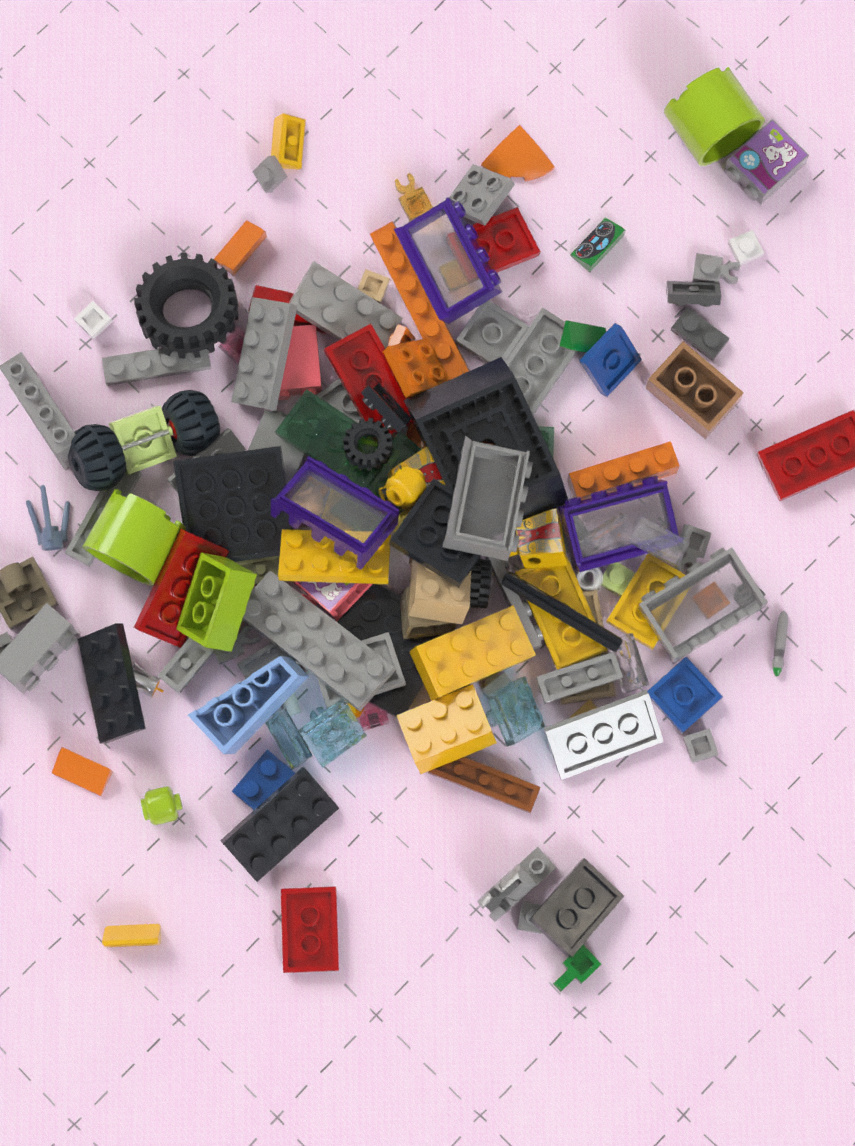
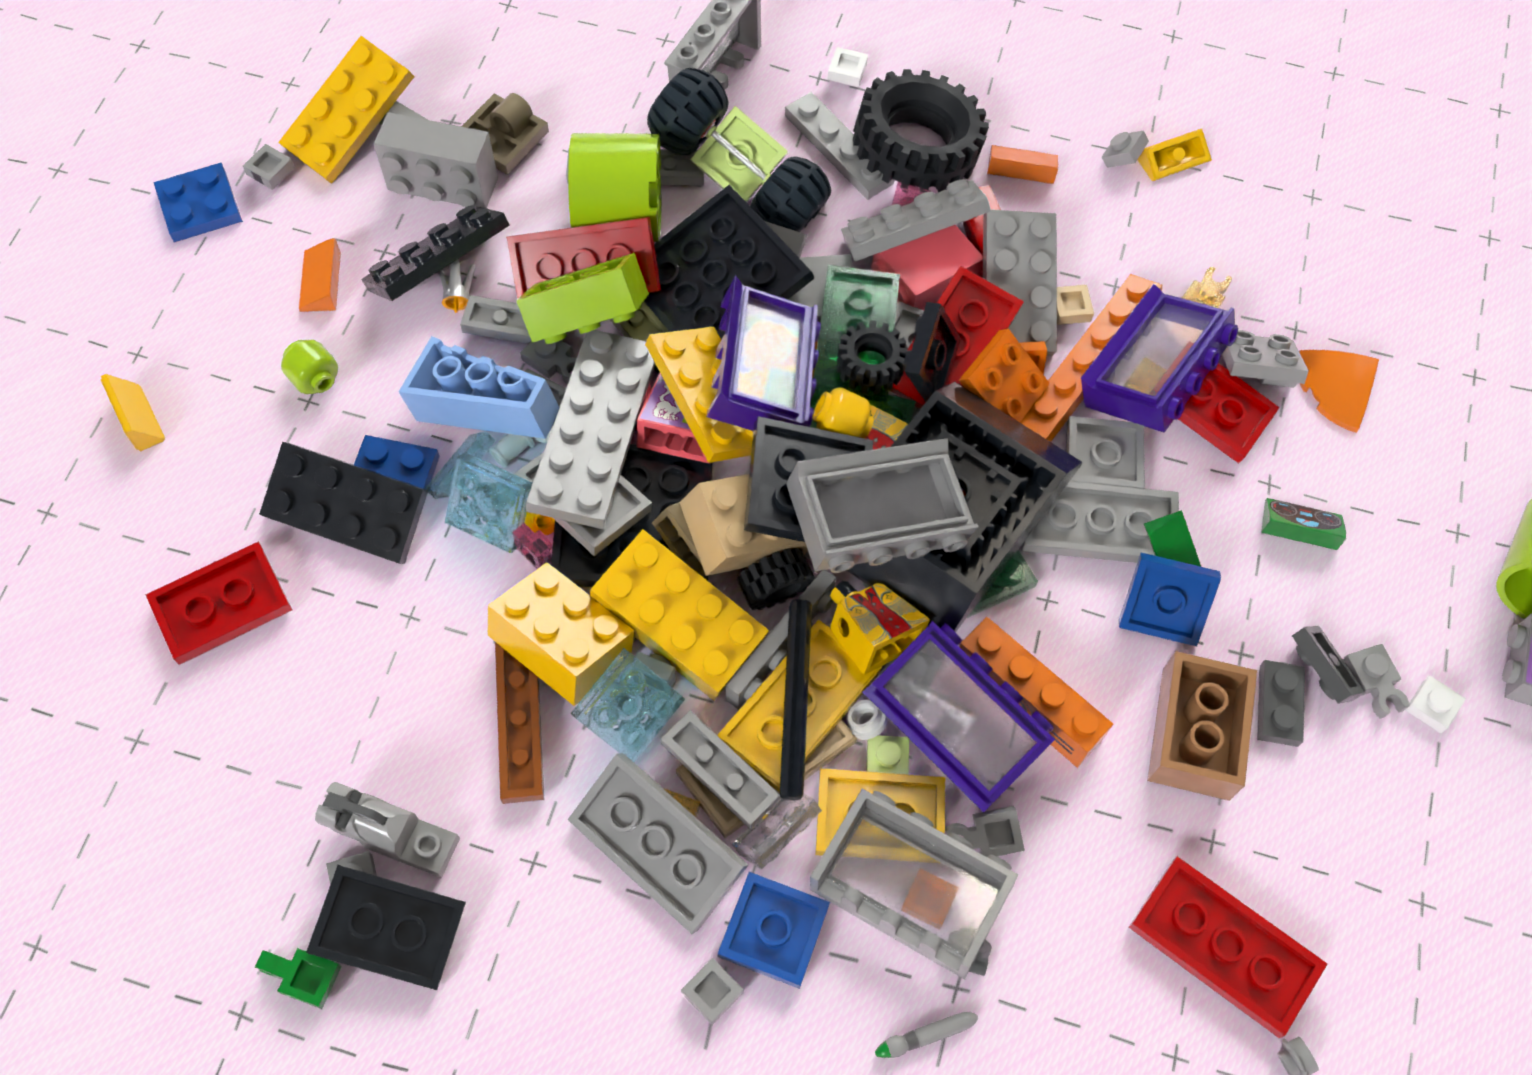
camera: 60 degrees right, 15 degrees down
(51, 537) = (583, 123): sand blue plant -> none
(658, 542) = (965, 772): clear plate -> none

